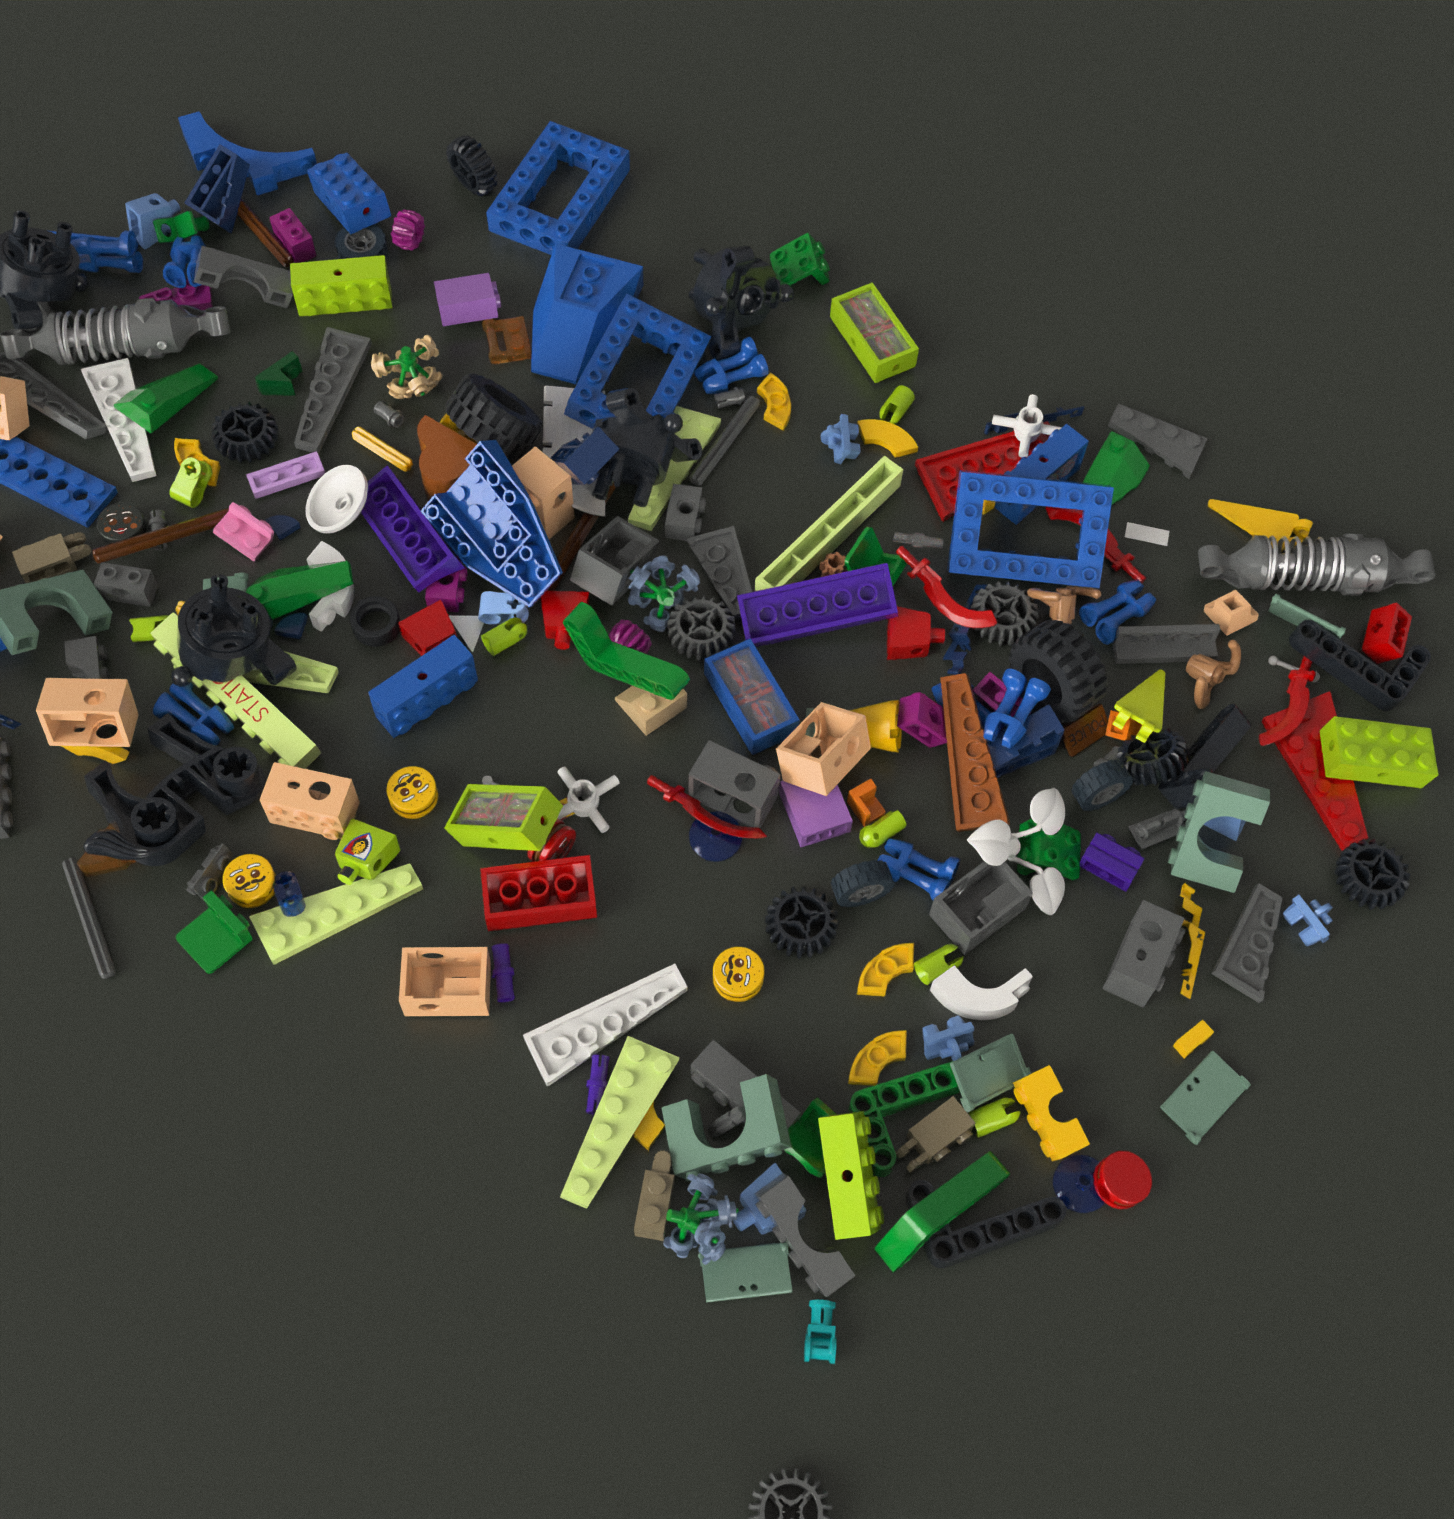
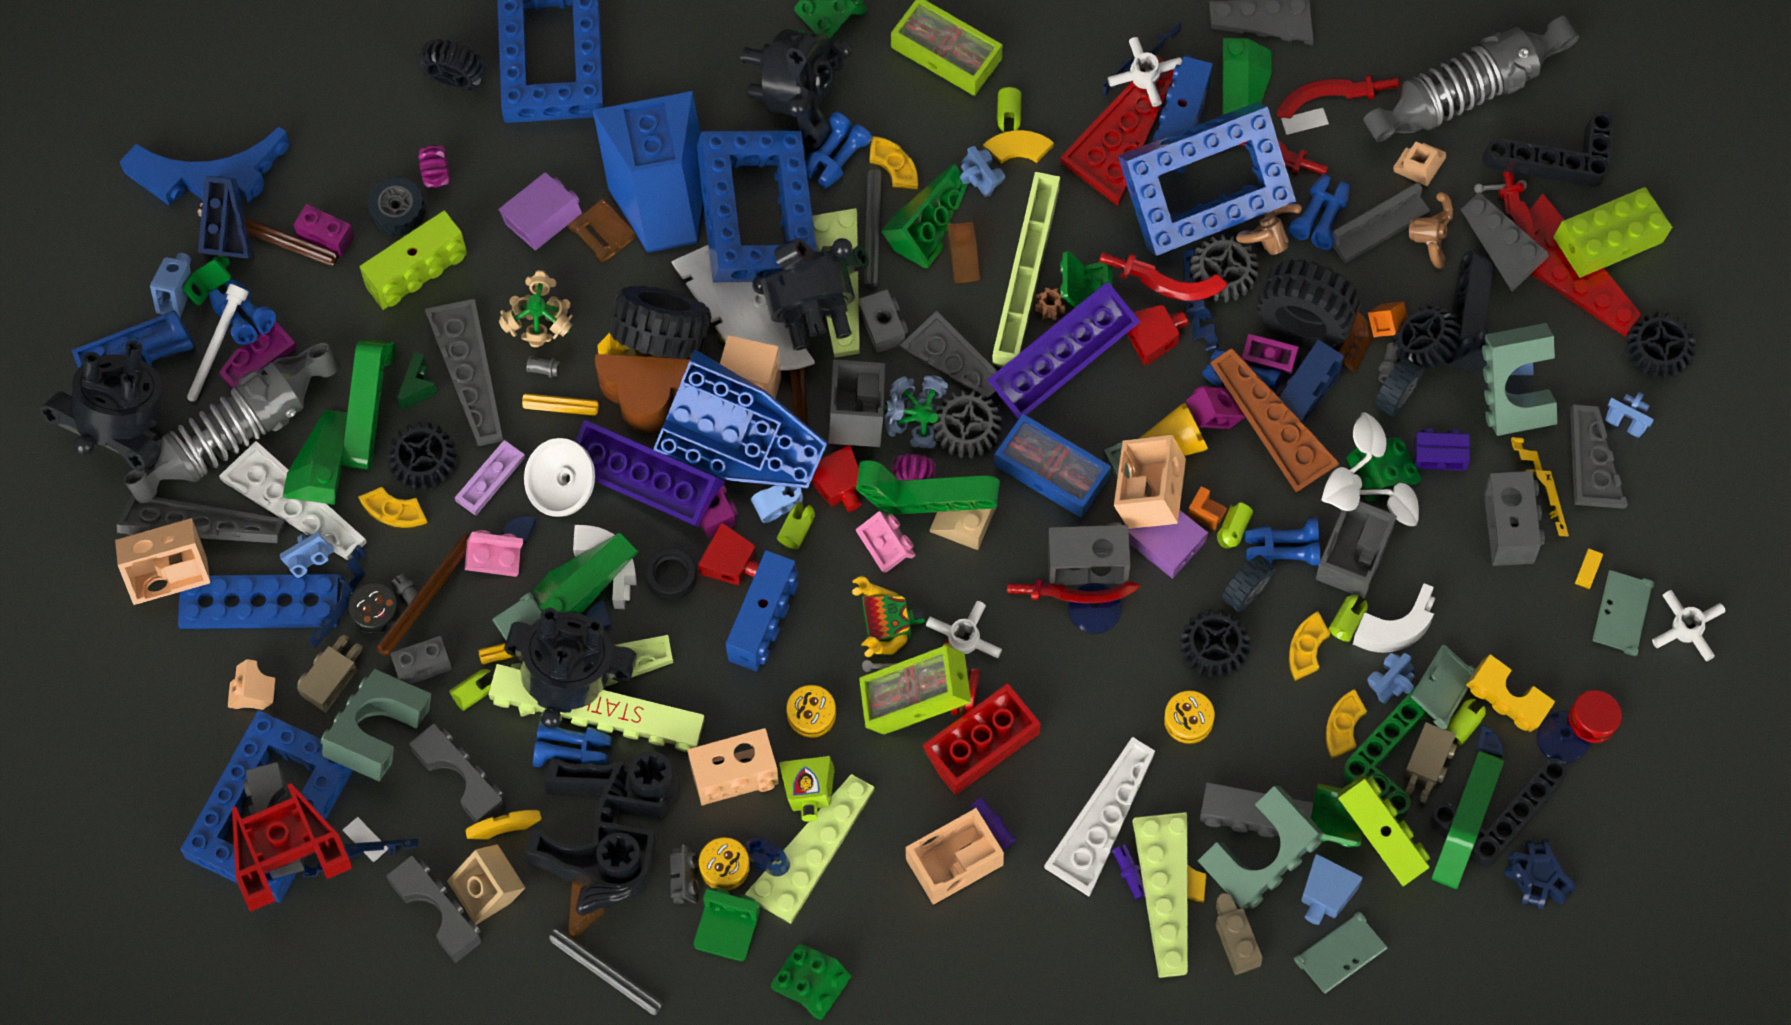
camera: 25 degrees left, 5 degrees up
(45, 788) = (485, 883): none -> tan slope
(86, 704) = (486, 787): light nougat piece -> none
(94, 511) = (346, 590): none -> dark blue piece
(99, 457) = (307, 552): none -> medium blue hips
(186, 245) = (235, 297): none -> white piece
(189, 484) = (409, 537): lime piece -> none
(216, 267) = (342, 291): dark grey arch -> none
(226, 363) = (364, 400): none -> green beam
(252, 1024) = (811, 980): none -> green bracket
(349, 193) = (351, 157): blue brick -> none
(469, 628) = (759, 535): white sticker -> none
(526, 748) = (885, 618): none -> torso
(570, 686) = (885, 540): none -> bright pink bracket
(585, 457) = (780, 324): dark blue wedge -> none
(703, 1223) = (1286, 929): sand blue plant -> none
(727, 1121) = (1258, 841): dark grey axle -> none
(730, 398) = (851, 182): dark grey pin -> none
(768, 456) = (922, 222): none -> green wedge
(787, 492) = (963, 252): none -> clear orange slope
(820, 1337) = (1428, 968): teal connector -> none
(824, 1266) = (1345, 883): dark grey arch -> none
(918, 540) = (1107, 235): clear bar -> none
(984, 1301) = (1540, 871): none -> dark blue piece
(1006, 1149) = (1489, 742): none -> dark blue tile
(1015, 684) = (1279, 336): blue piece -> none
(1144, 706) = (1395, 294): neon yellow flag -> none
(1157, 828) = (1464, 398): dark grey hinge -> none
(1187, 518) = (1332, 87): none -> red sword
(1263, 521) = (1403, 57): yellow flag -> none
(1269, 1134) = (1680, 630): none -> white bar
(1272, 715) = (1507, 245): none -> dark grey wing
(1296, 615) = (1485, 137): sand green door -> none
(1387, 633) = (1564, 113): red brick -> none

